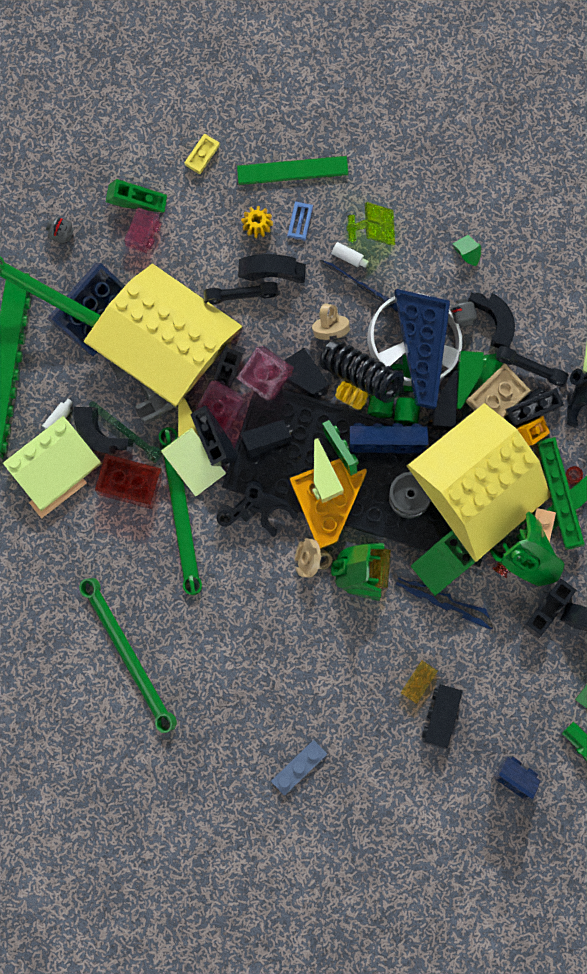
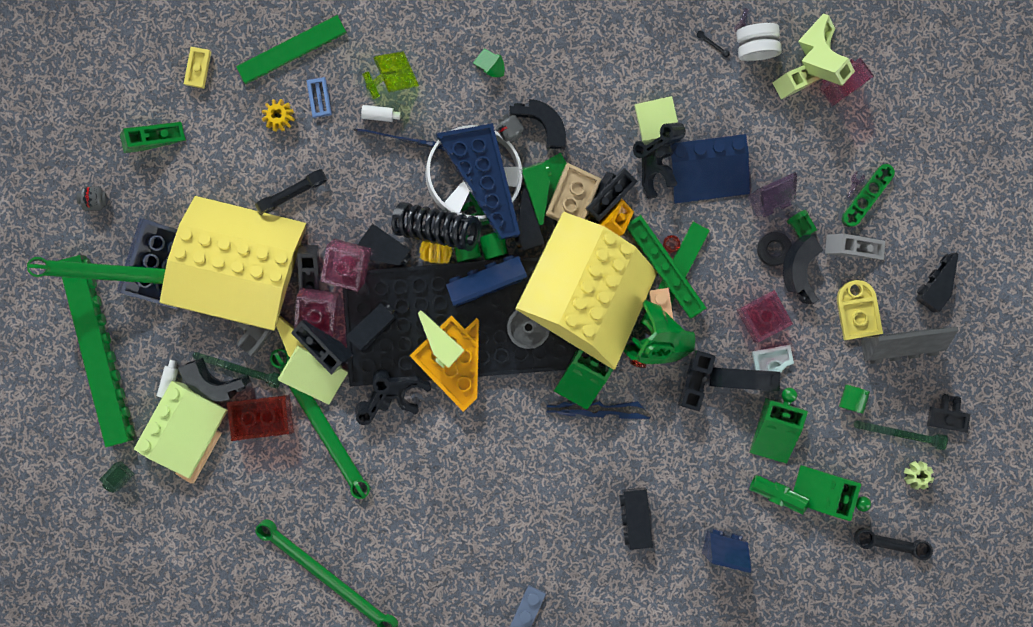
camera: 25 degrees left, 10 degrees up
(142, 230) = (171, 167): clear pink brick -> none
(271, 265) = (309, 155): black arch -> none
(309, 556) = (458, 422): tan tile -> none
(331, 324) = (388, 191): tan tile -> none
(340, 447) = (446, 308): green plate -> none
(353, 571) = (501, 416): green piece -> none
(380, 568) = (526, 405): clear yellow plate -> none
(419, 682) = (603, 494): clear yellow plate -> none
(510, 357) = (616, 156): black piece -> none

